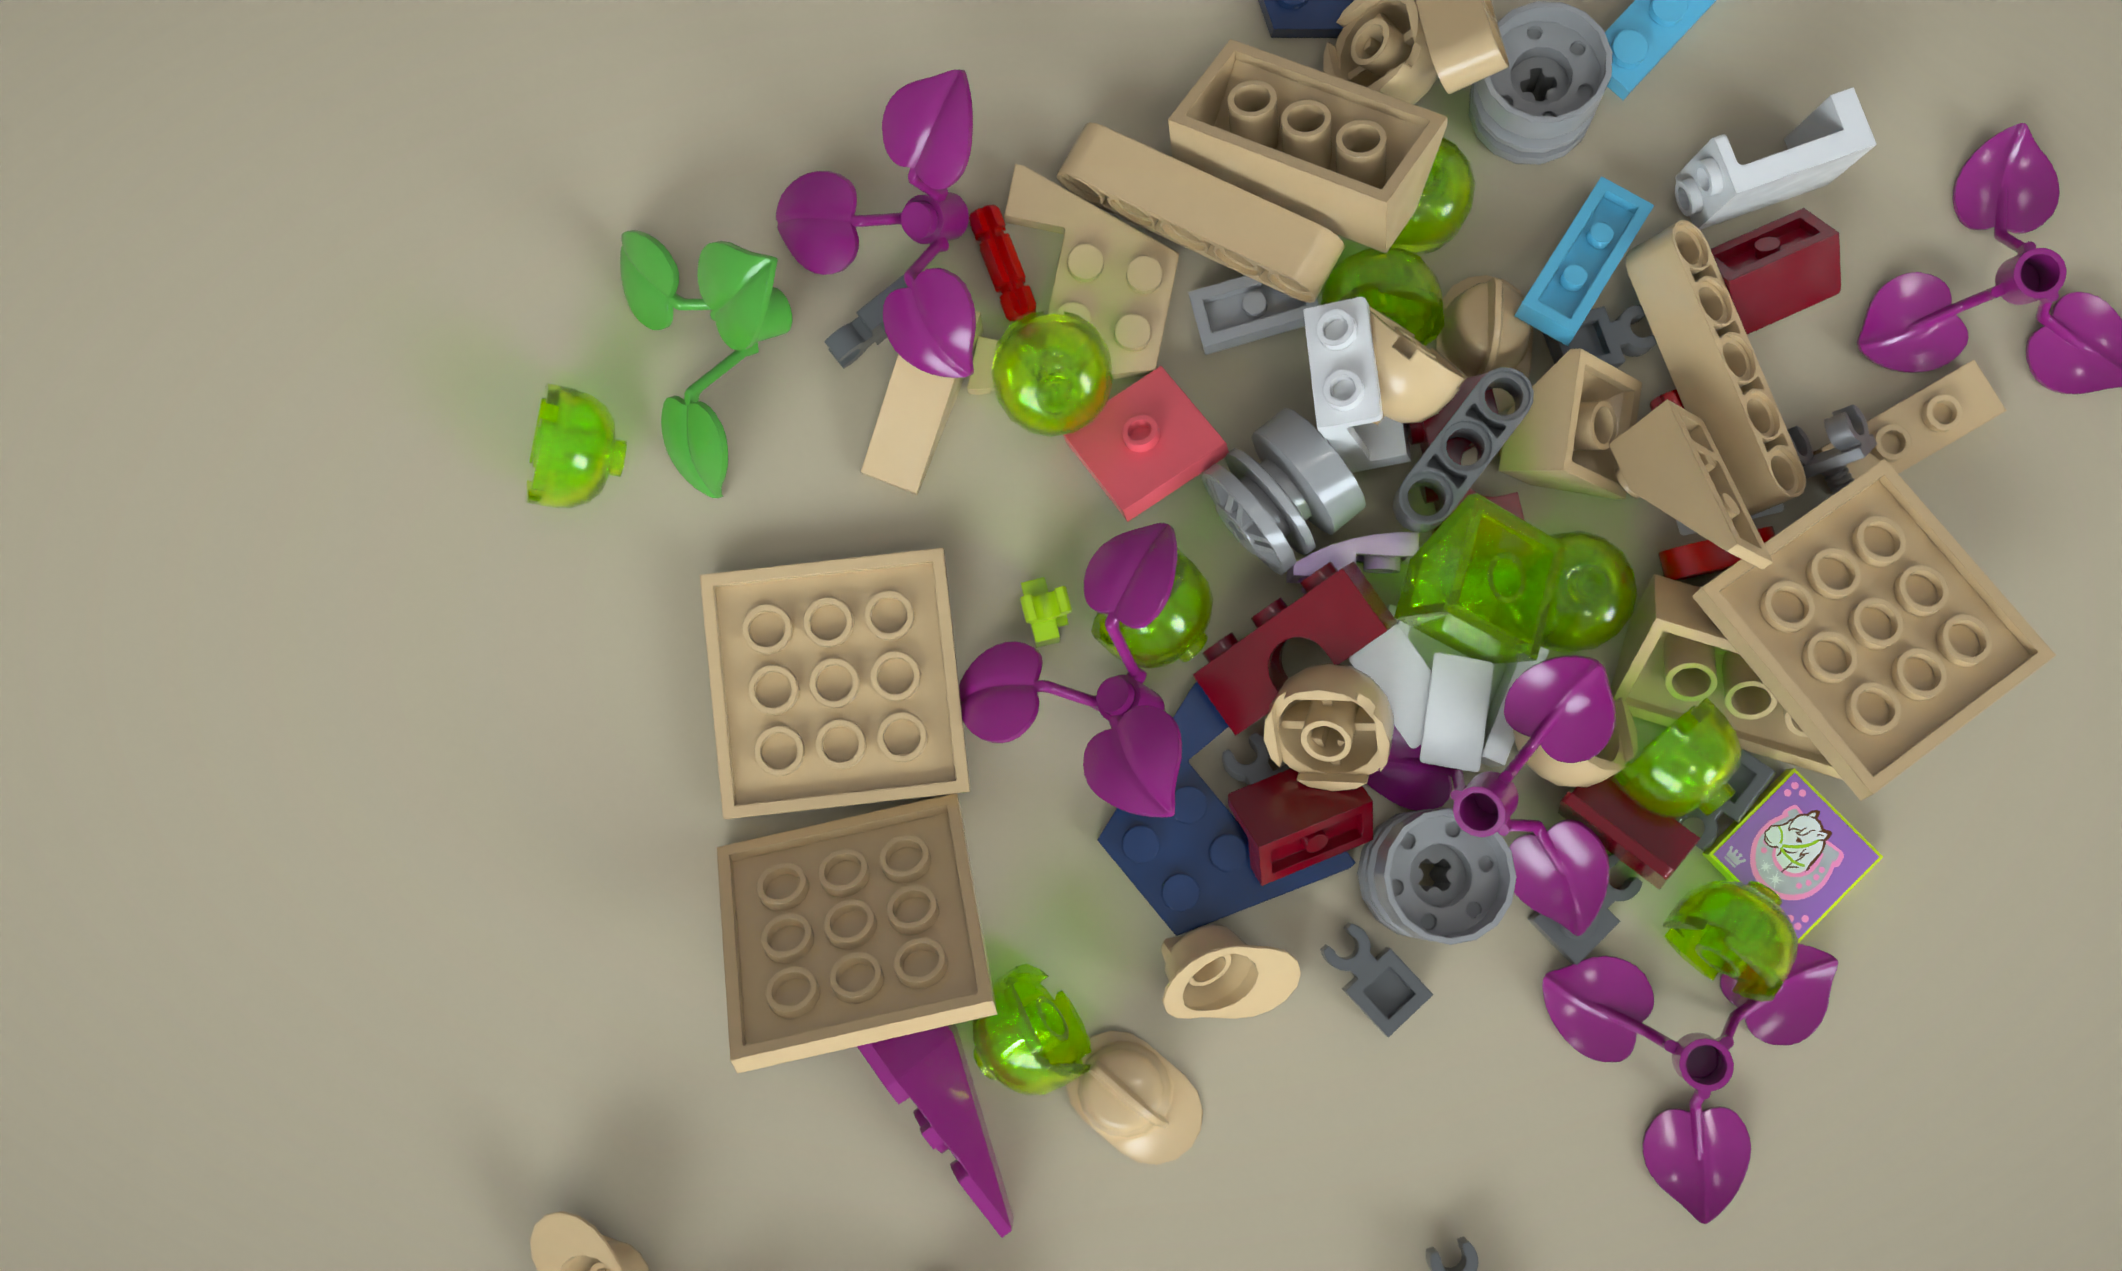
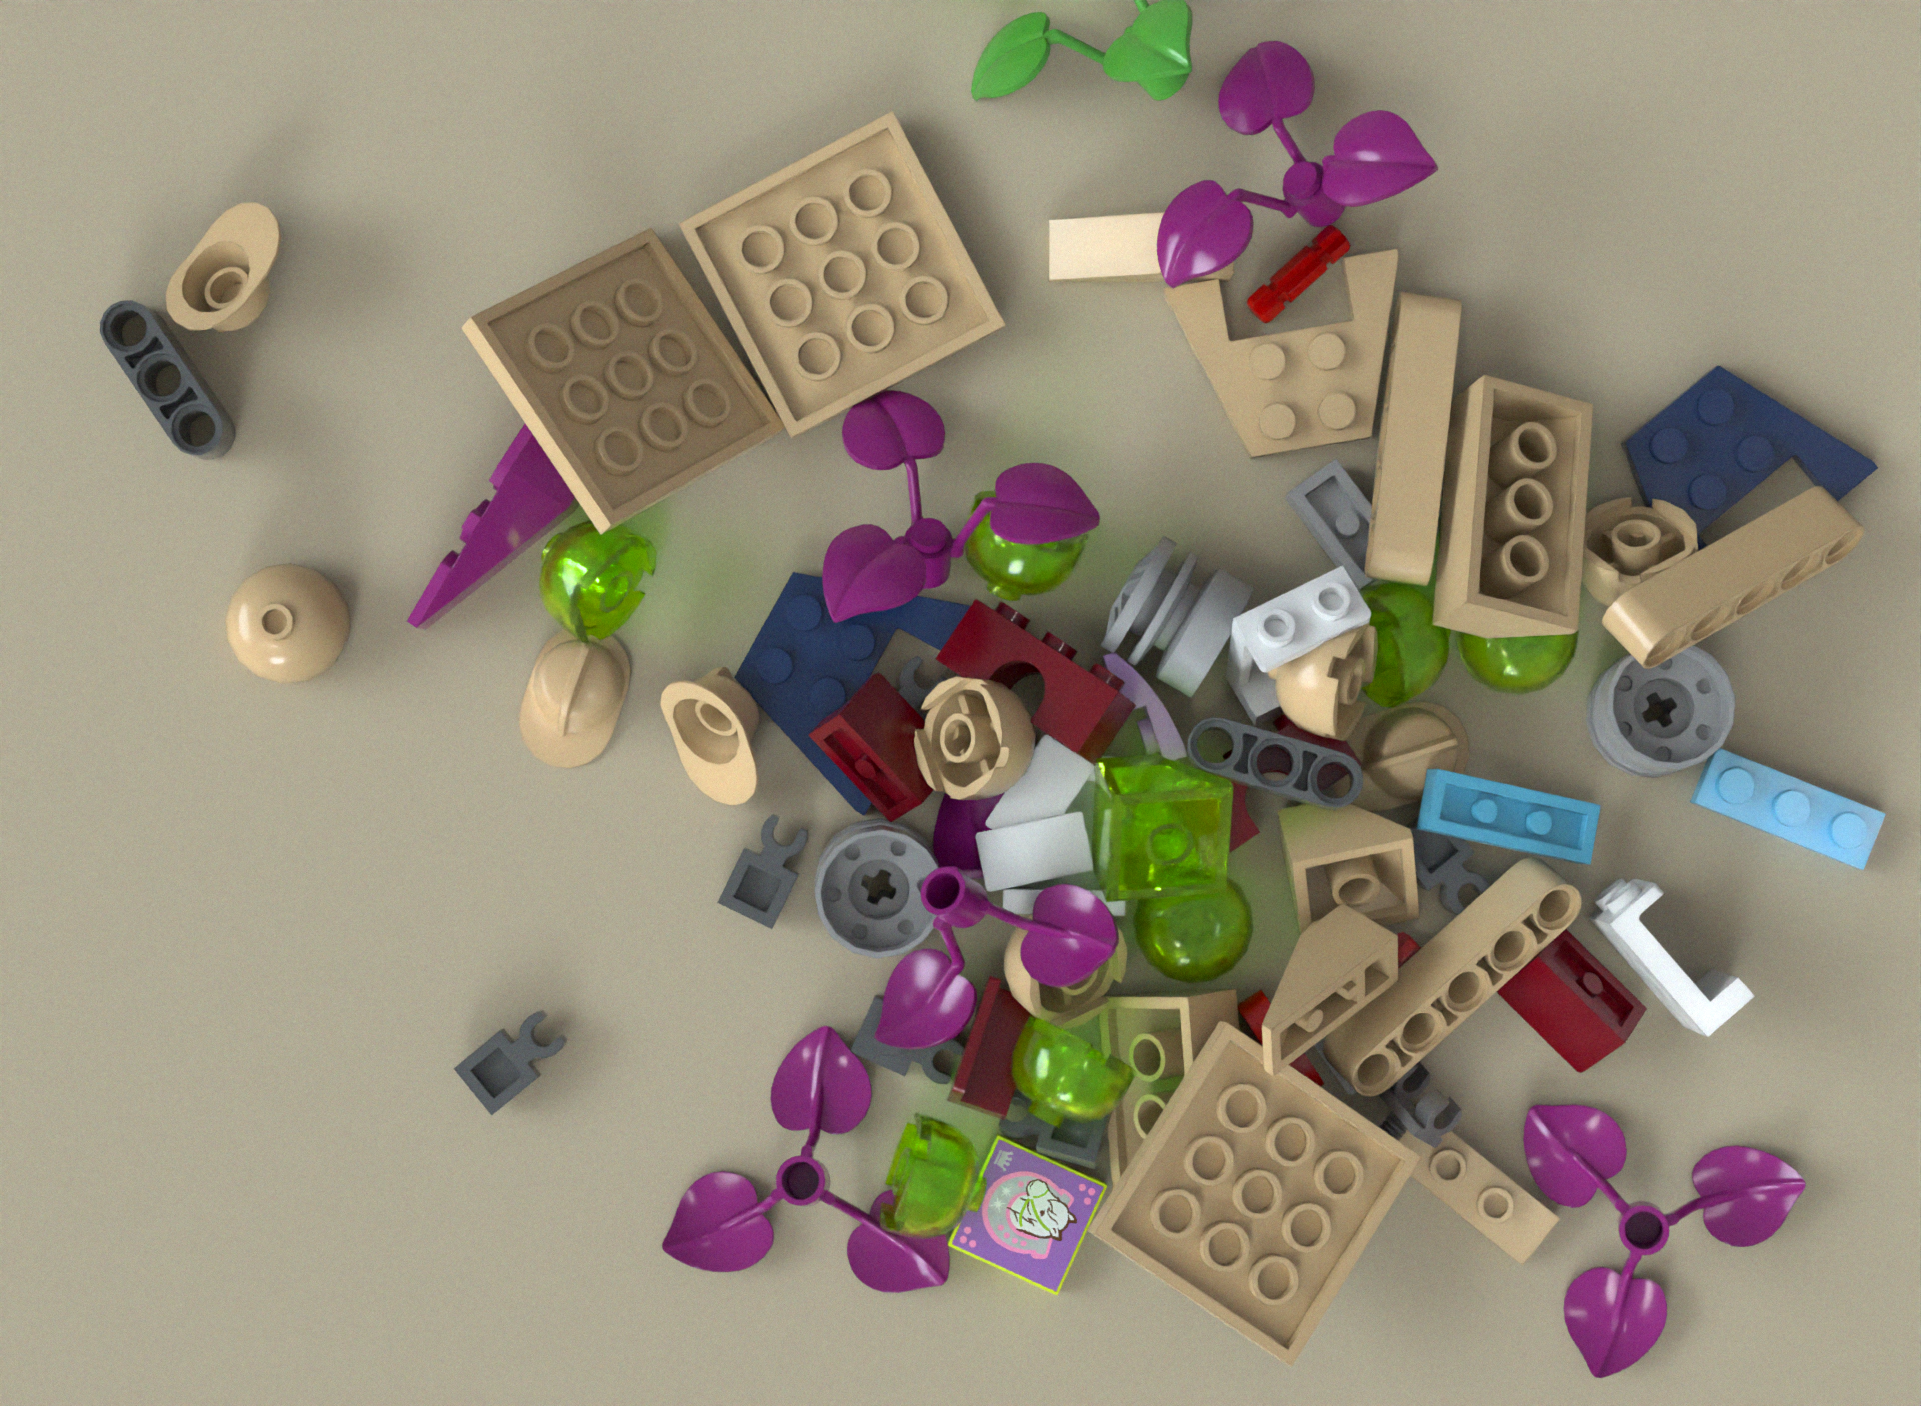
camera: 75 degrees right, 5 degrees up
(854, 338) = (1183, 172): dark grey plate -> none
(1045, 610) = (982, 439): lime plate -> none
(1052, 373) = (1206, 361): clear neon green cylinder -> none
(1147, 443) = (1175, 473): coral plate -> none

